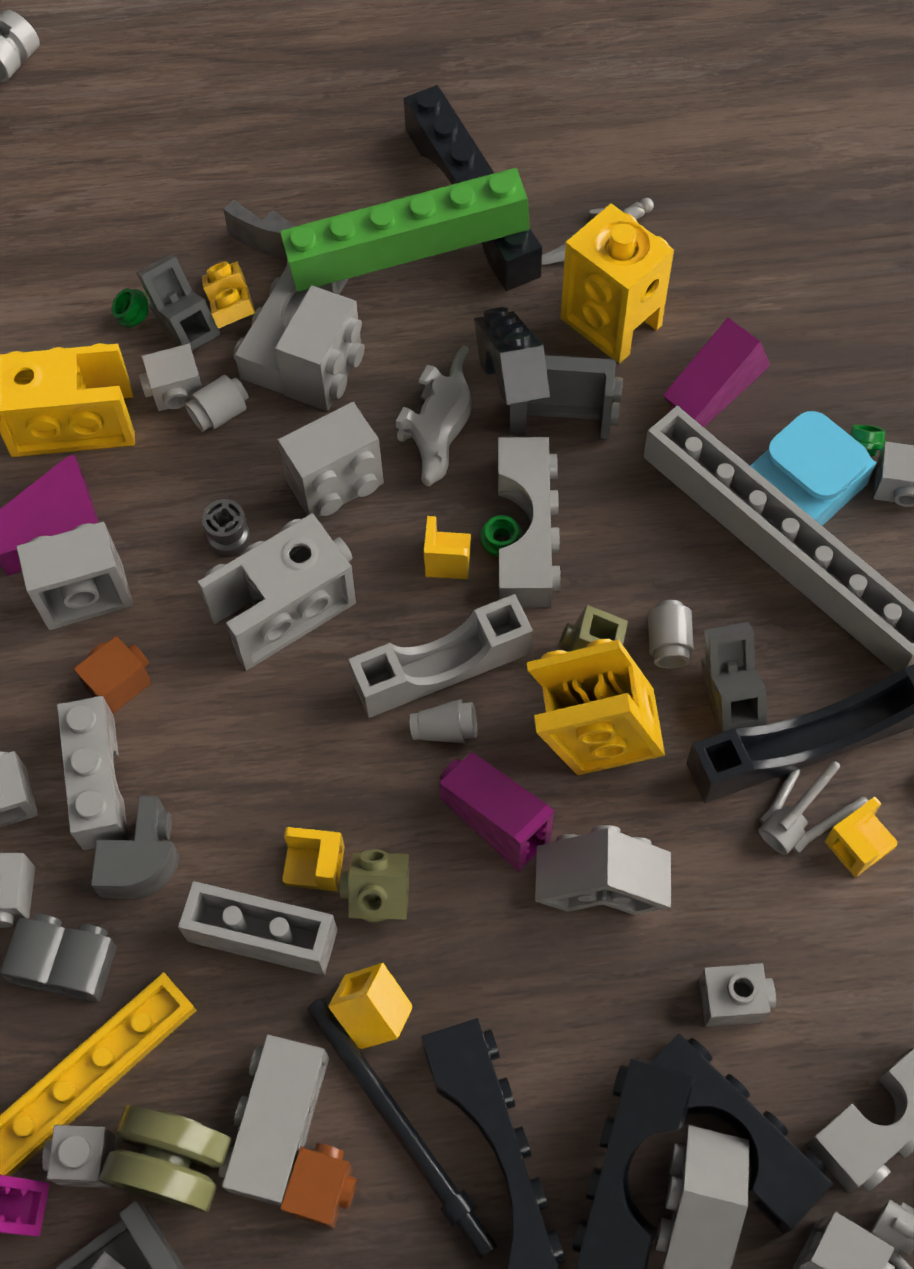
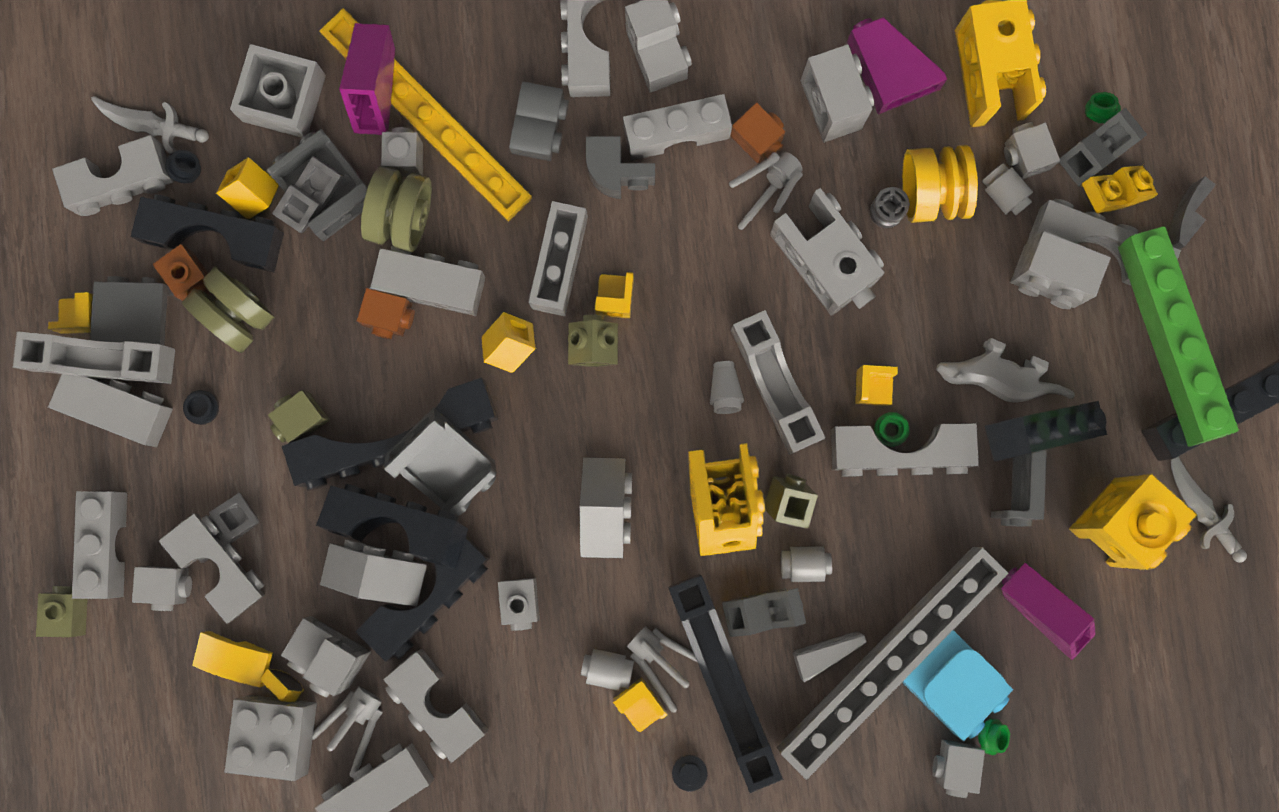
camera: 90 degrees right, 20 degrees up
(167, 644) = (783, 171): none -> light grey plant
(201, 463) = (941, 183): none -> yellow wheel
(332, 461) = (947, 287): light grey brick -> none
(456, 1205) = (375, 407): black bar -> none
(497, 809) = (654, 426): magenta slope -> none
(544, 1096) = (442, 463): none -> panel
(784, 618) = (820, 656): none -> light grey slope
(820, 877) = (607, 669): none -> light grey brick

